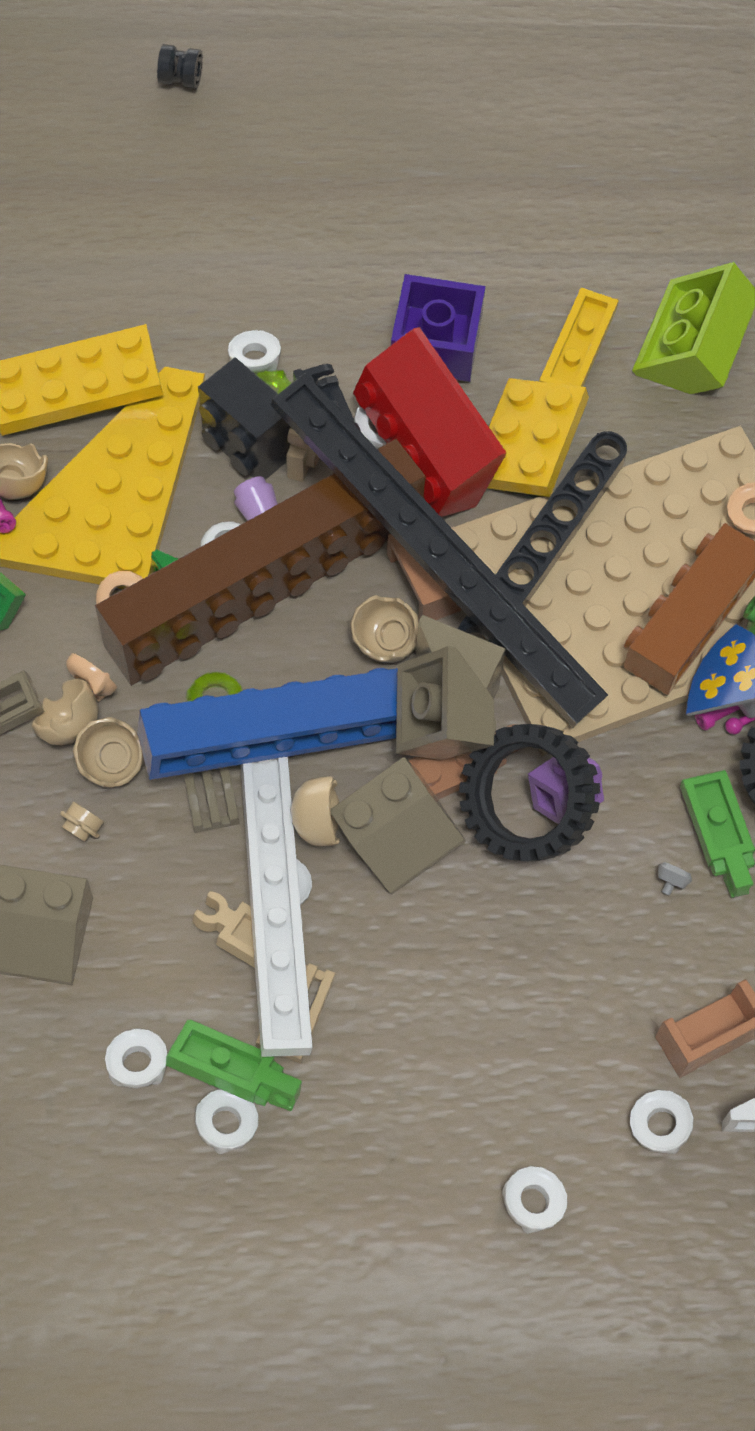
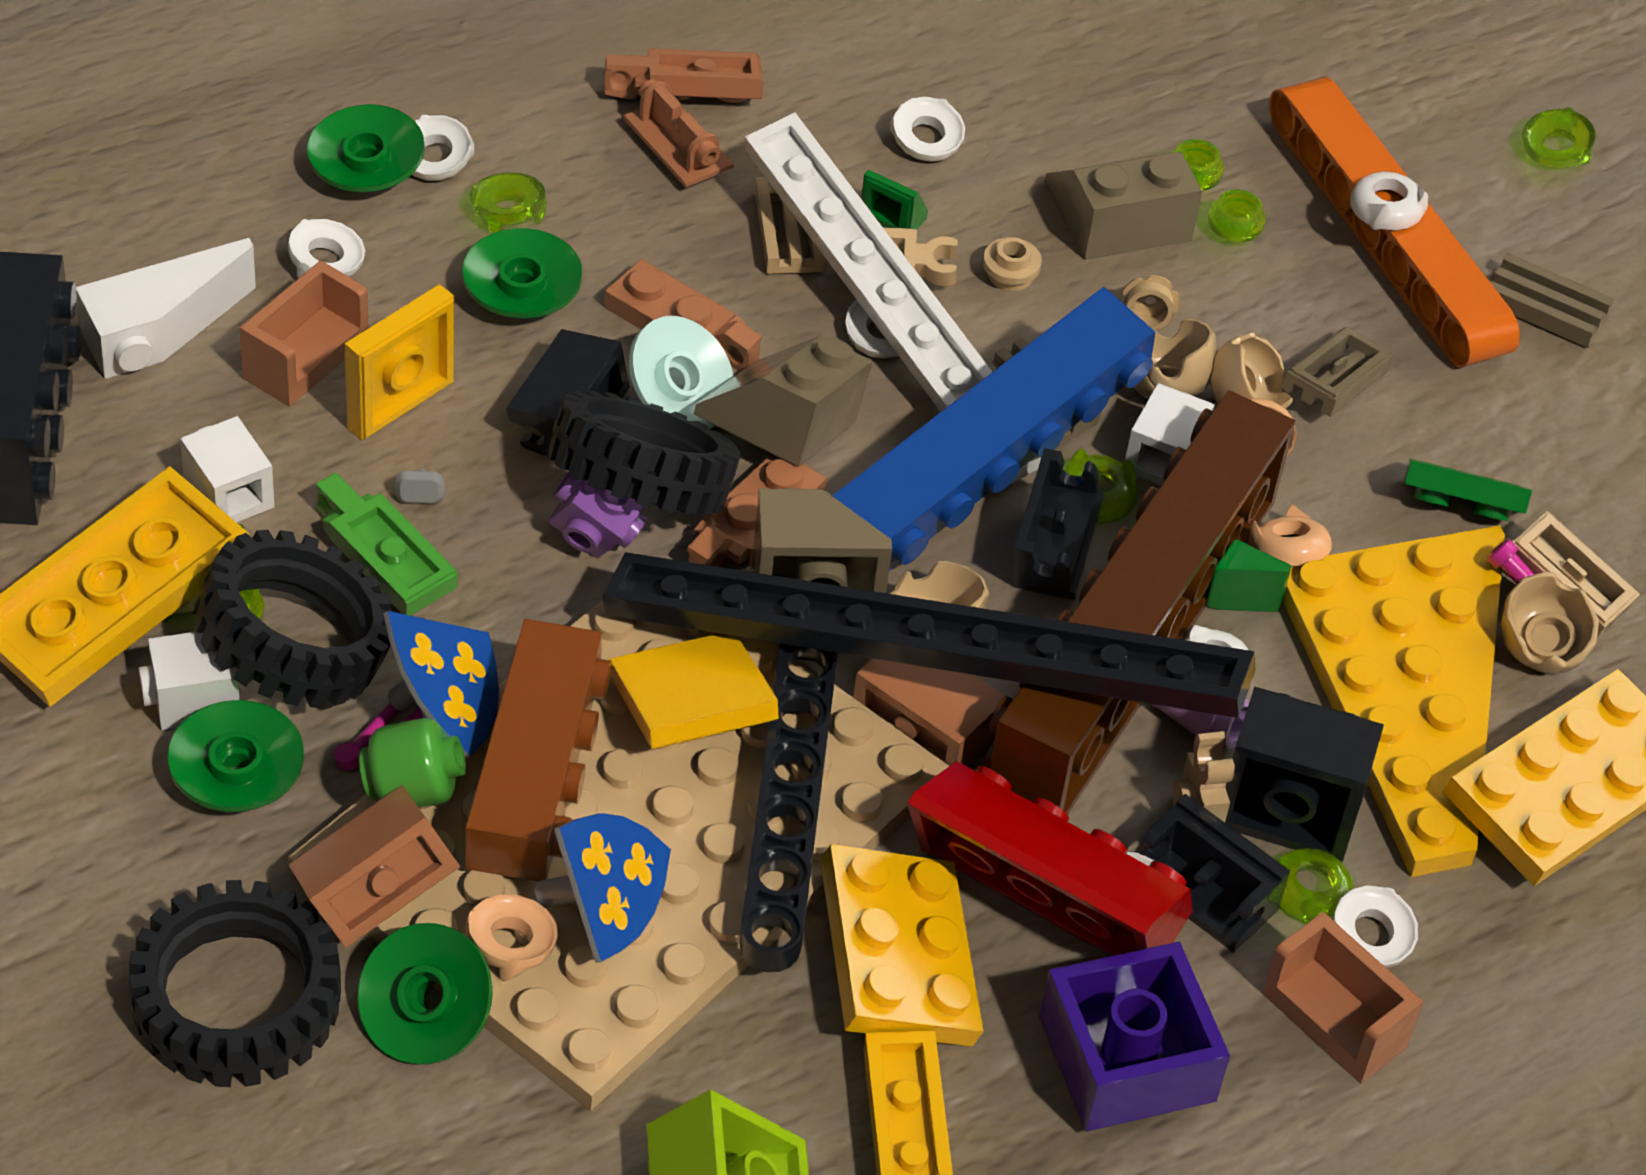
camera: 150 degrees right, 15 degrees down
(145, 689) = (1161, 429): none -> white brick
(154, 914) = (1012, 263): none -> tan plate
(208, 991) = (892, 203): none -> green slope
(224, 1101) = (802, 94): white piece -> none
(232, 1066) = (849, 141): bright green hinge -> none
(274, 656) = (1057, 528): none -> black hinge
(294, 1191) = (689, 73): none -> nougat hinge
(304, 313) = (1342, 997): none -> nougat panel
(312, 811) = (895, 368): tan hair -> none
(337, 1130) = (676, 136): none -> nougat hinge
(422, 953) = (650, 293): none -> nougat hinge
(442, 707) = (789, 447): dark tan slope -> none
(457, 881) = (677, 365): none -> light aqua dish
(522, 1120) = (508, 187): none -> clear neon green piece
(530, 1004) = (522, 273): none -> green dish
(542, 901) = (568, 365): none -> black hinge
(583, 607) = (693, 689): none -> yellow tile
(612, 1191) = (365, 148): none -> green dish
(662, 948) = (399, 362): none -> yellow tile
(692, 504) = (612, 875): none -> blue shield

